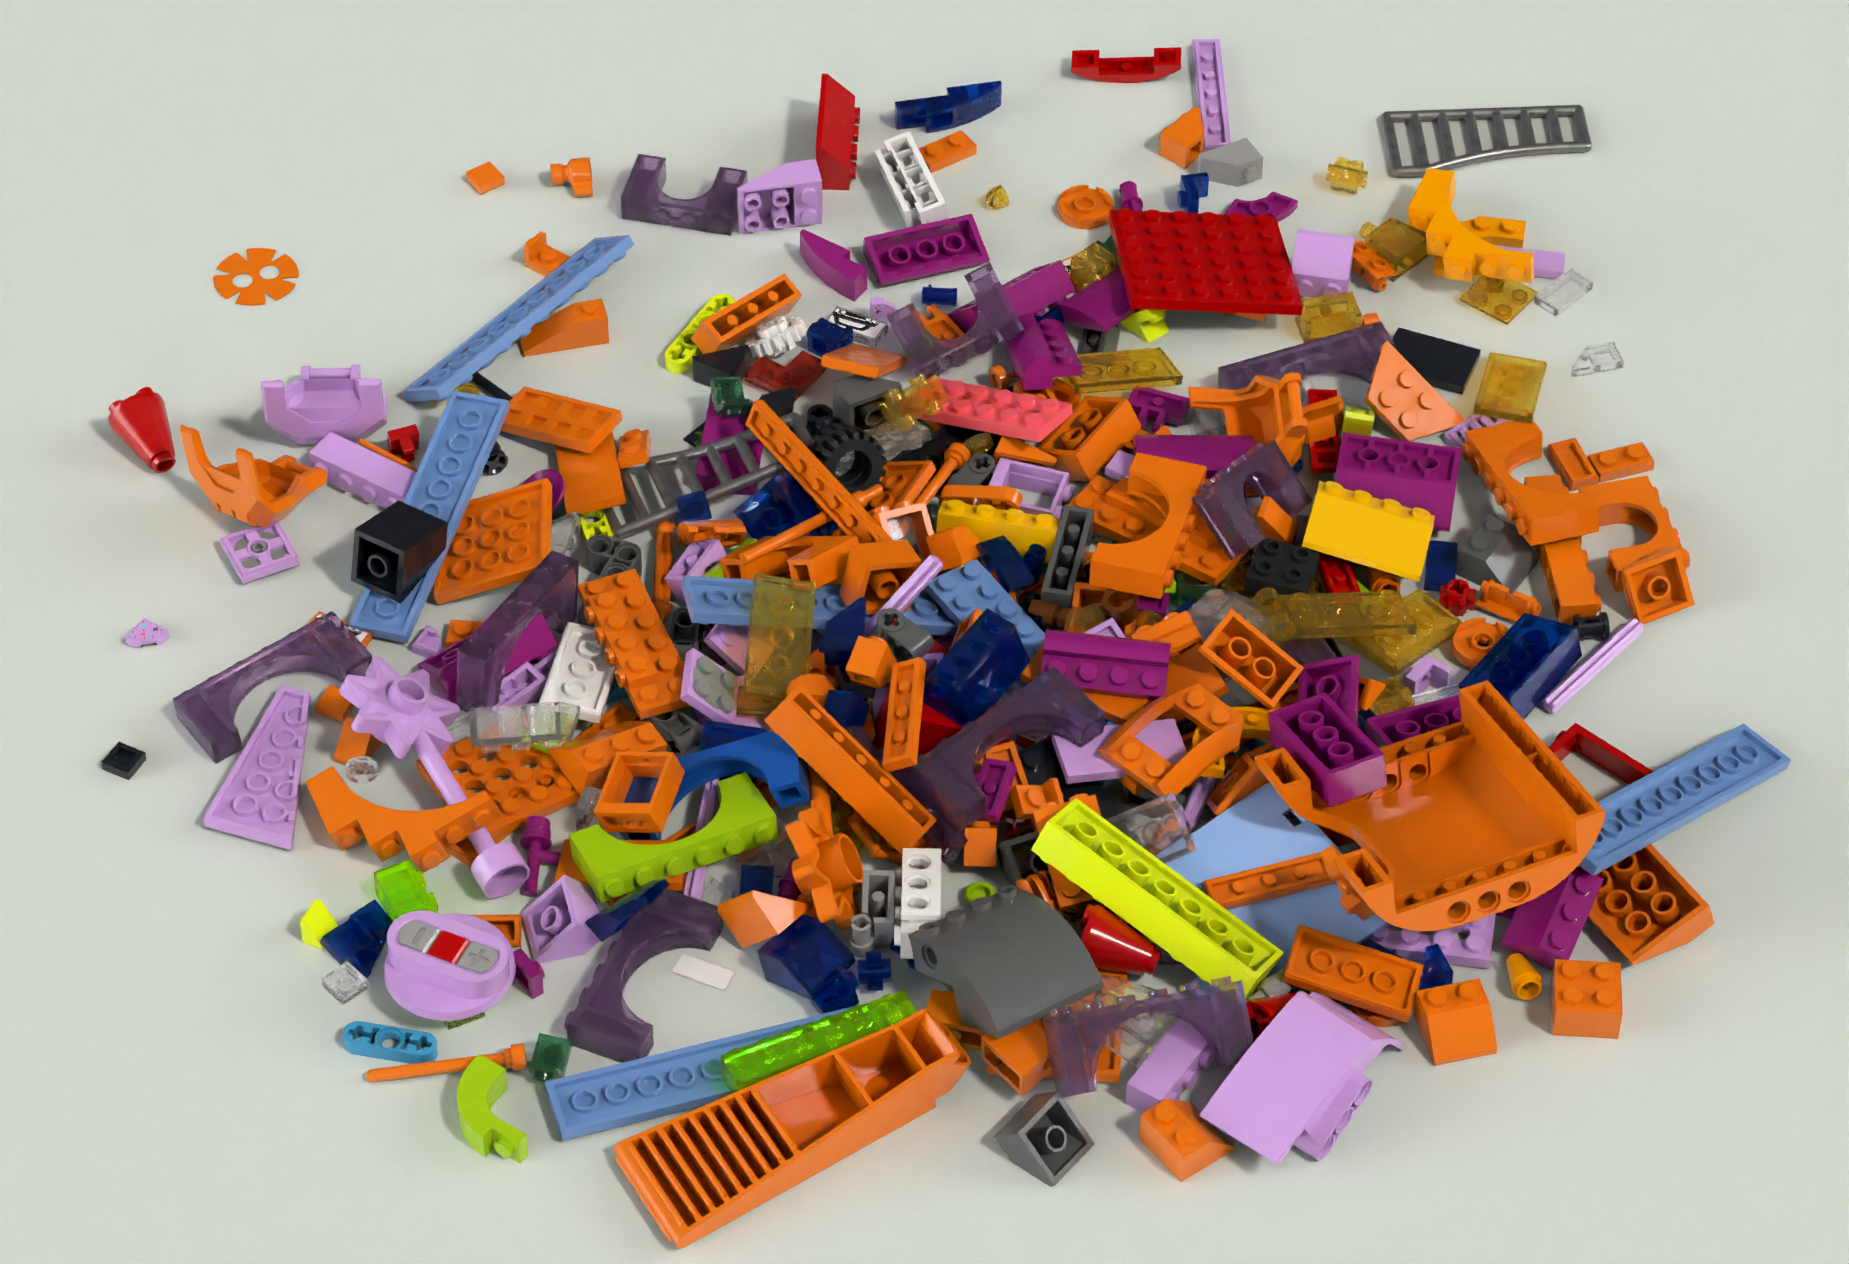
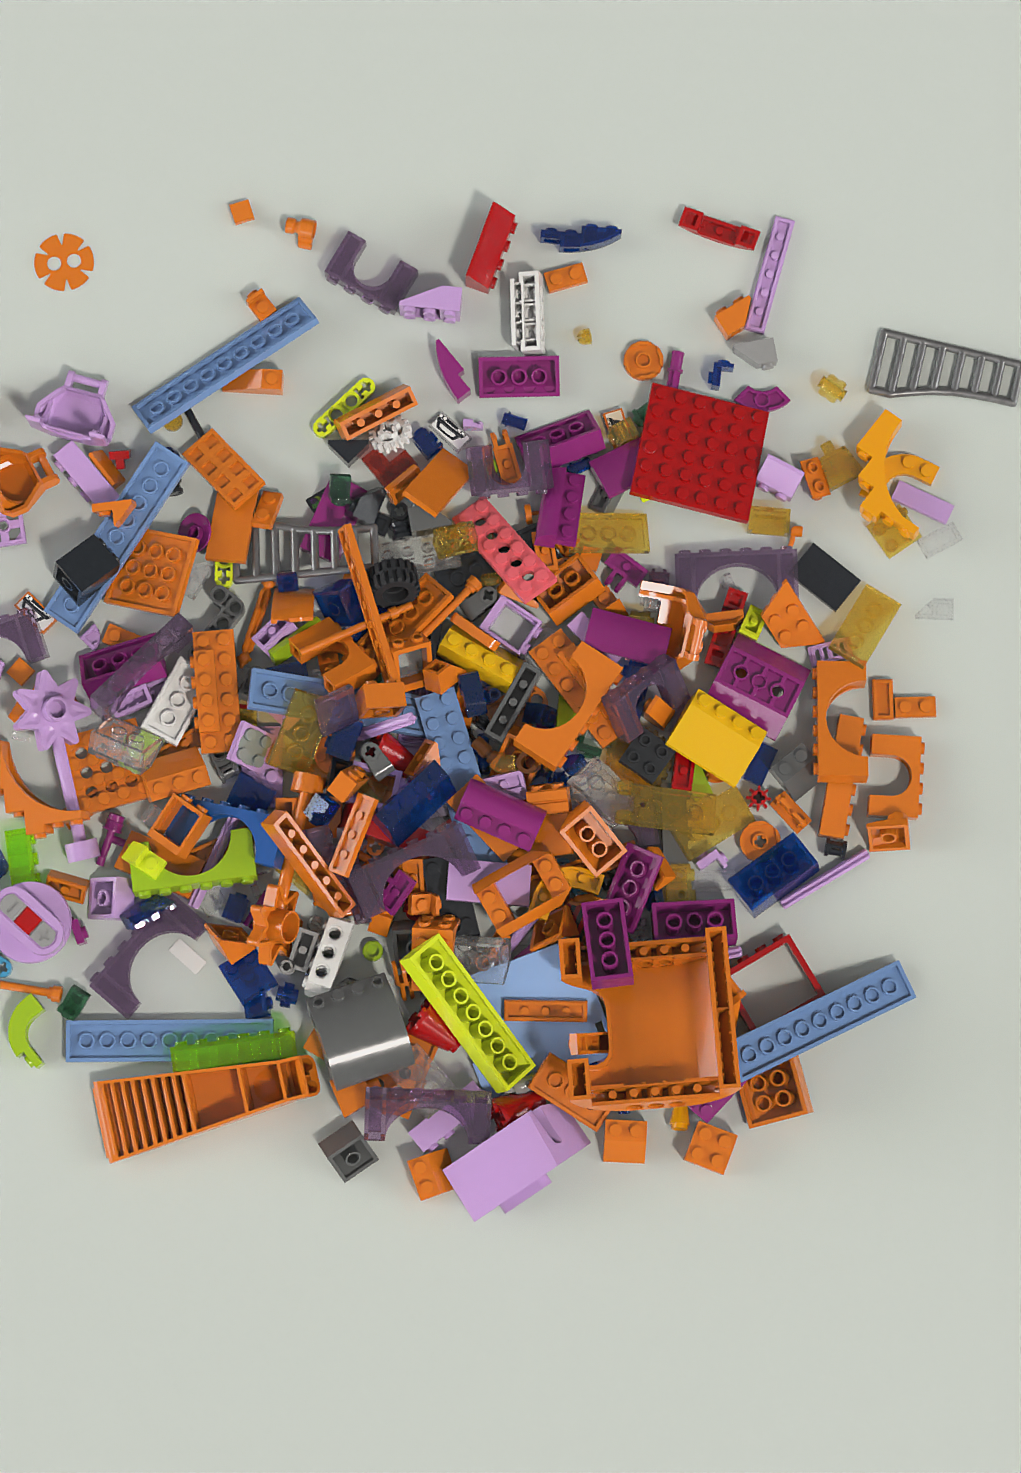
camera: 15 degrees right, 35 degrees up
(423, 468) = (120, 509): none -> orange slope
(596, 837) = (144, 859): none -> neon yellow slope
(810, 401) = (401, 484): none -> orange tile
(821, 591) = (336, 710): none -> clear purple tile

